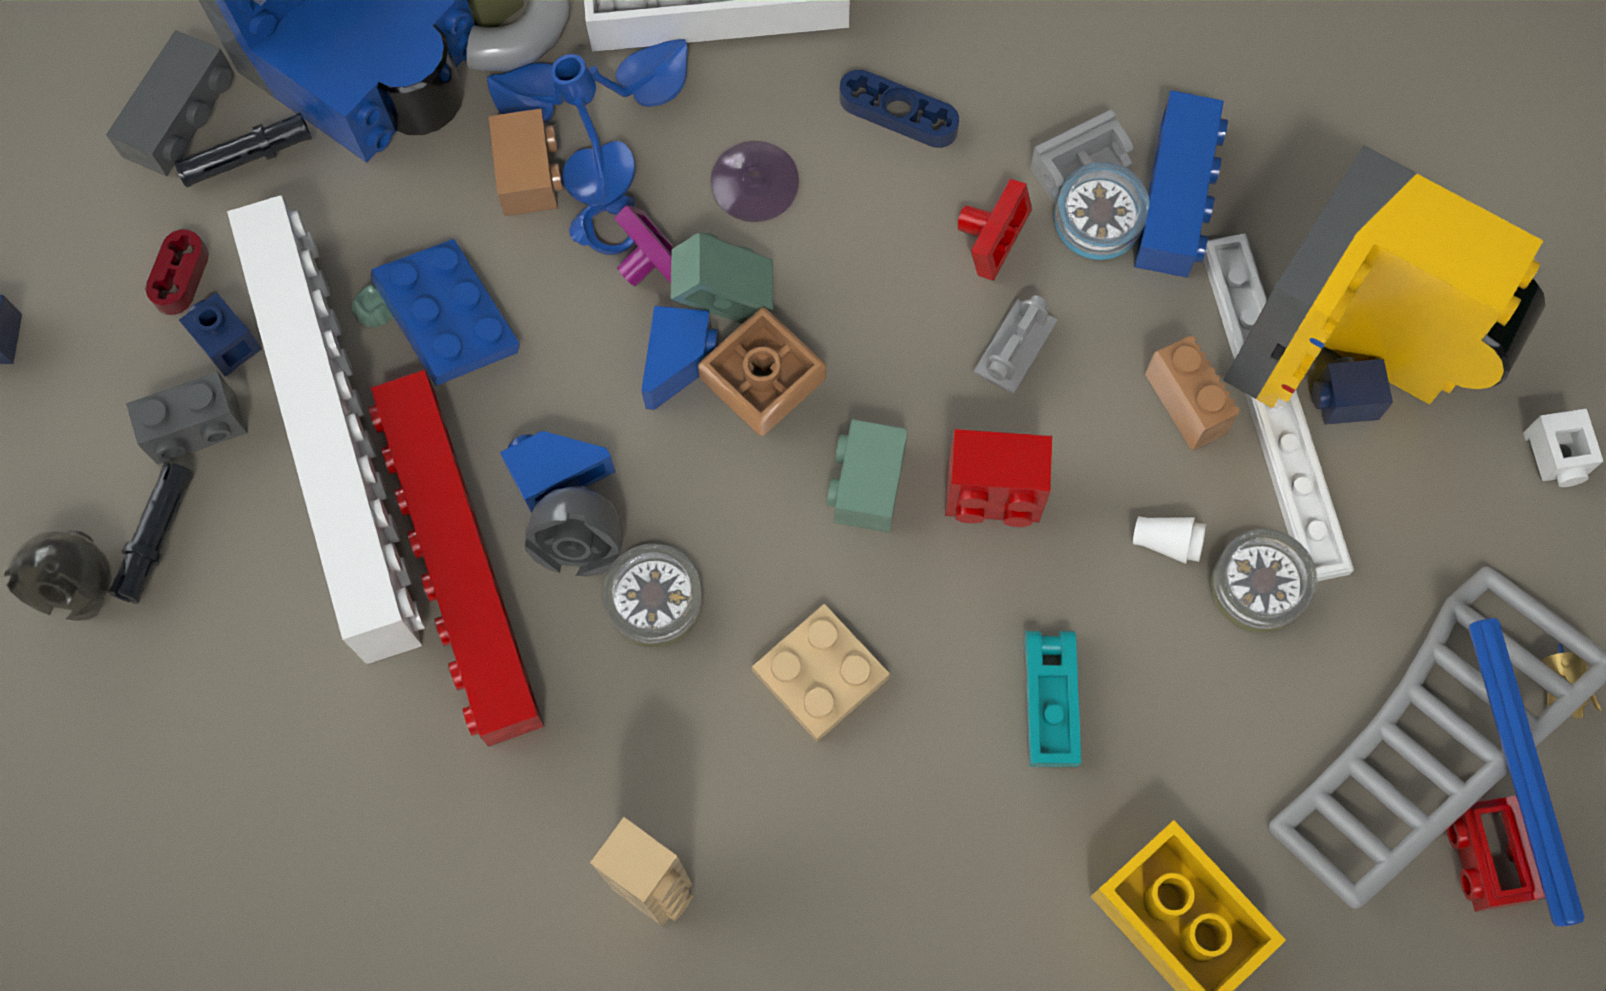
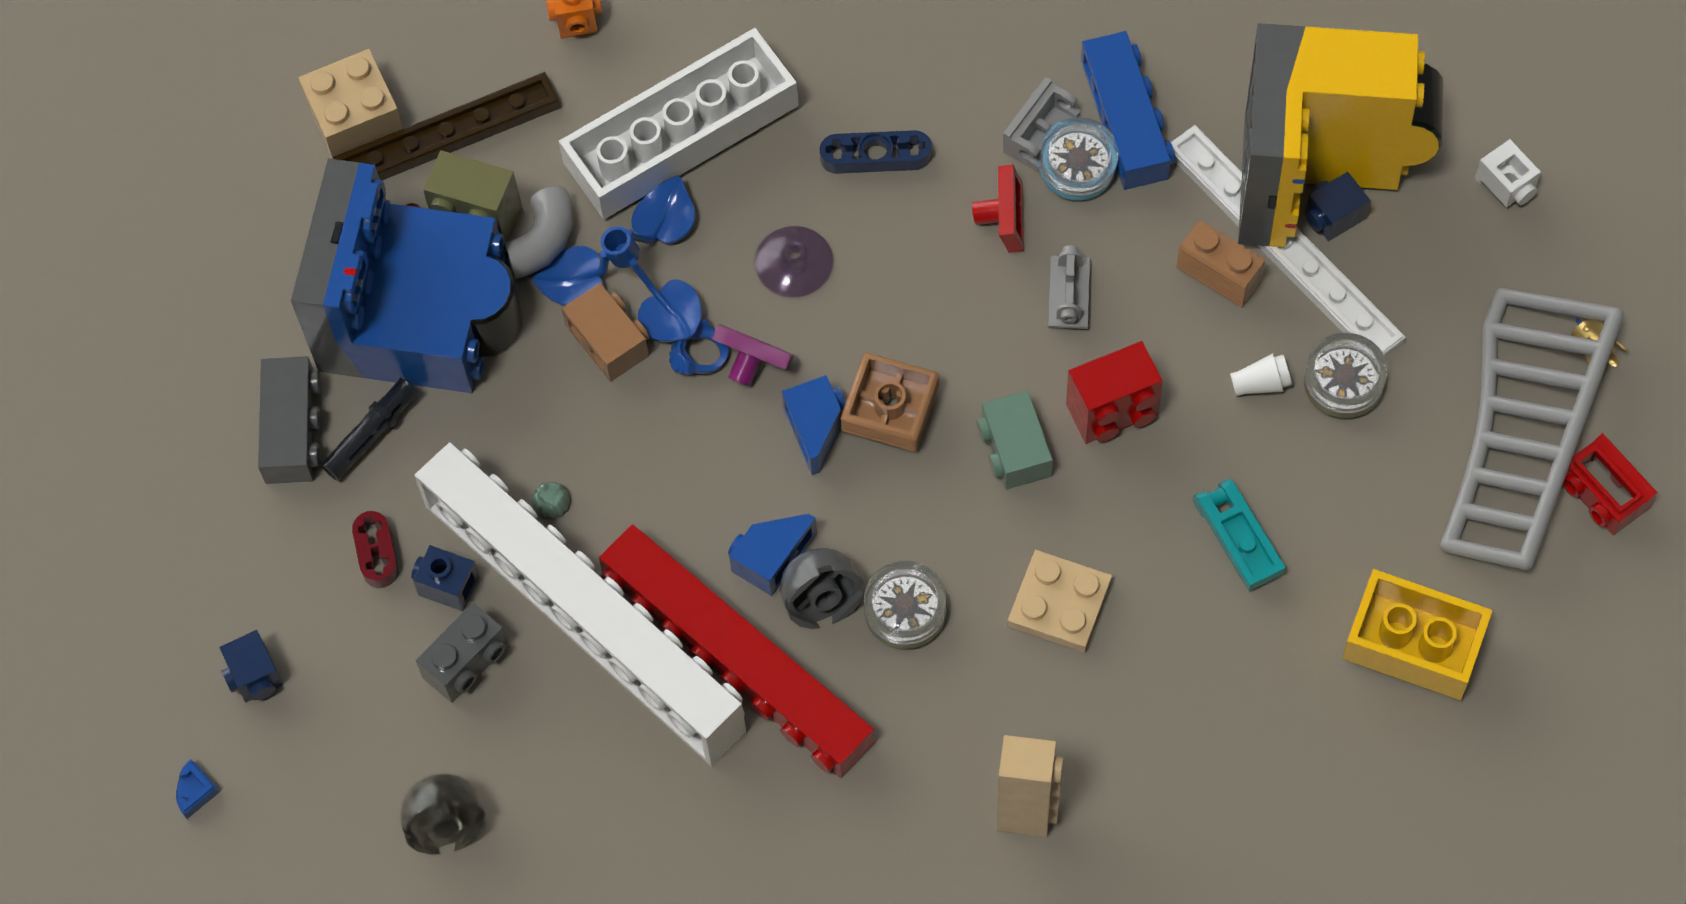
camera: 25 degrees left, 5 degrees down
(147, 541) = (488, 768): black pin -> none
(444, 311) = (613, 475): blue plate -> none
(721, 277) = (821, 345): sand green brick -> none
(1526, 773) = (1595, 414): blue axle -> none

